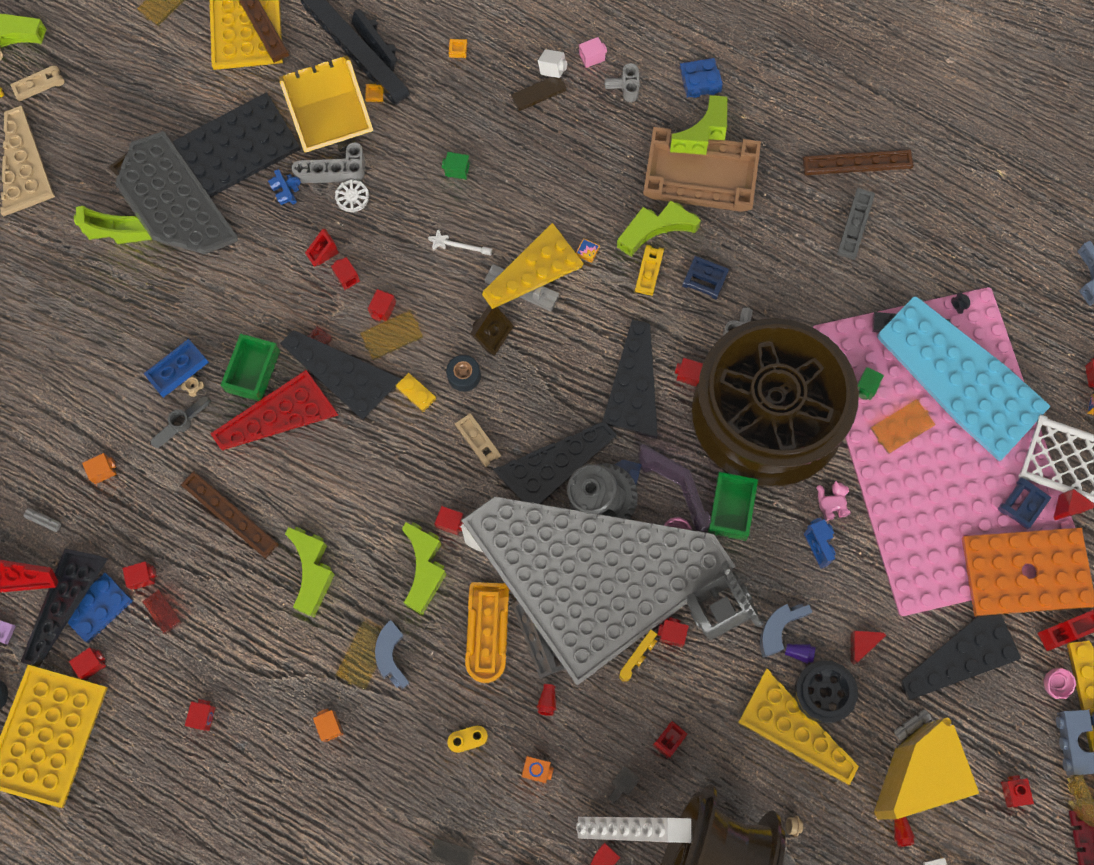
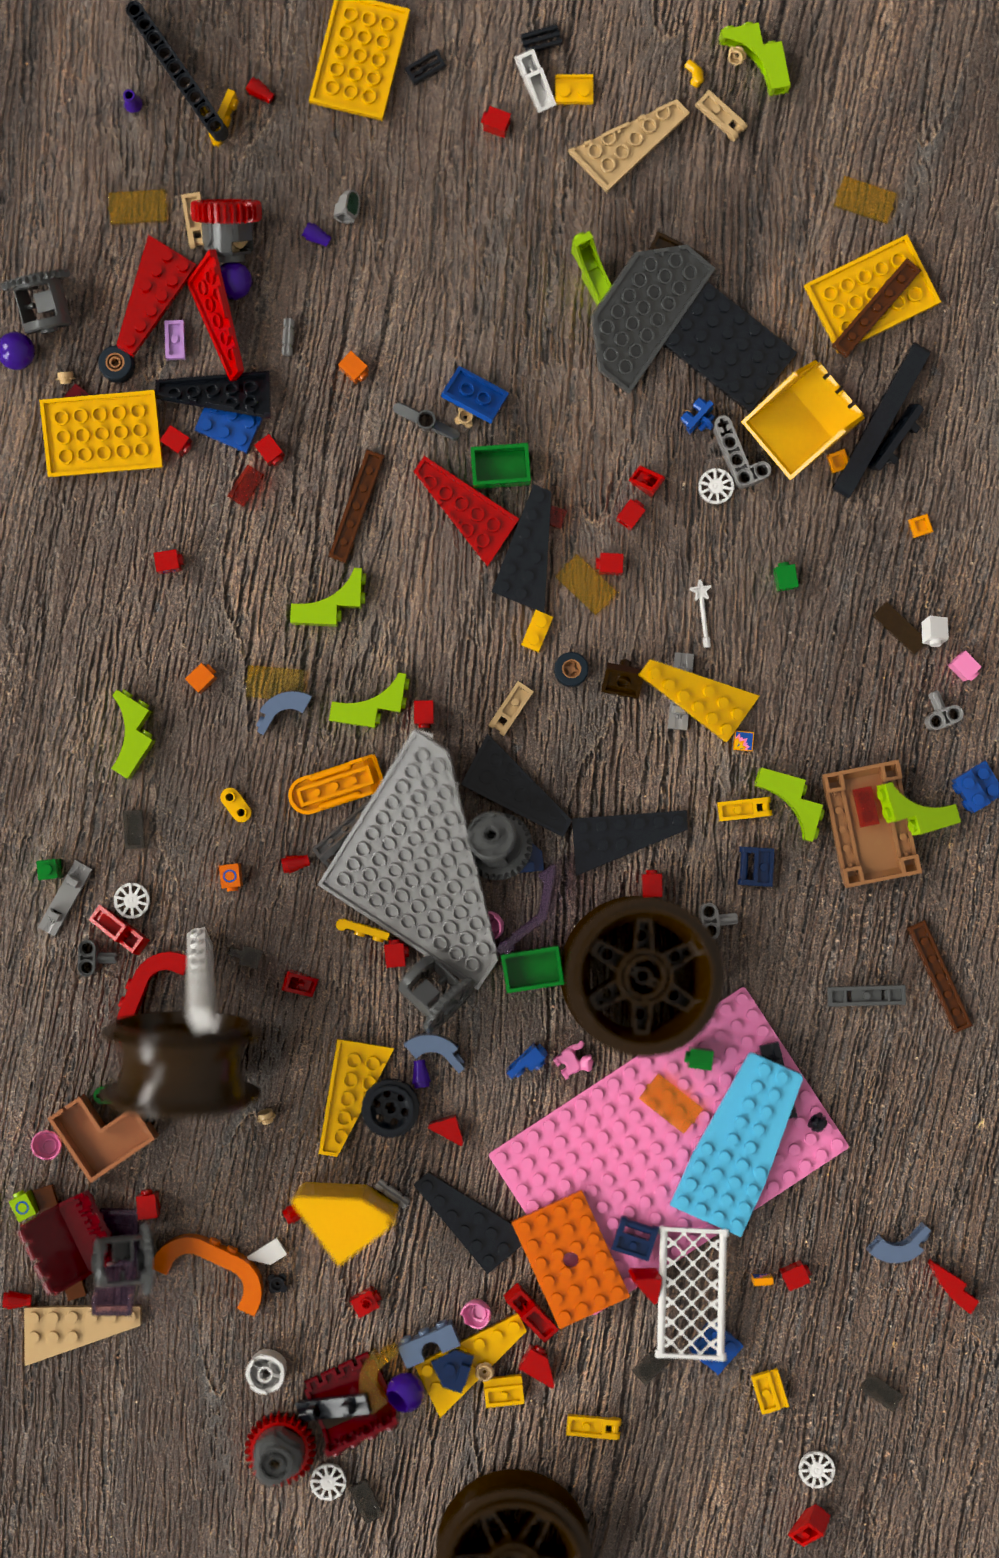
camera: 70 degrees right, 15 degrees up
(364, 817) = (136, 743): none -> lime arch
(685, 167) = (865, 806): none -> clear red plate

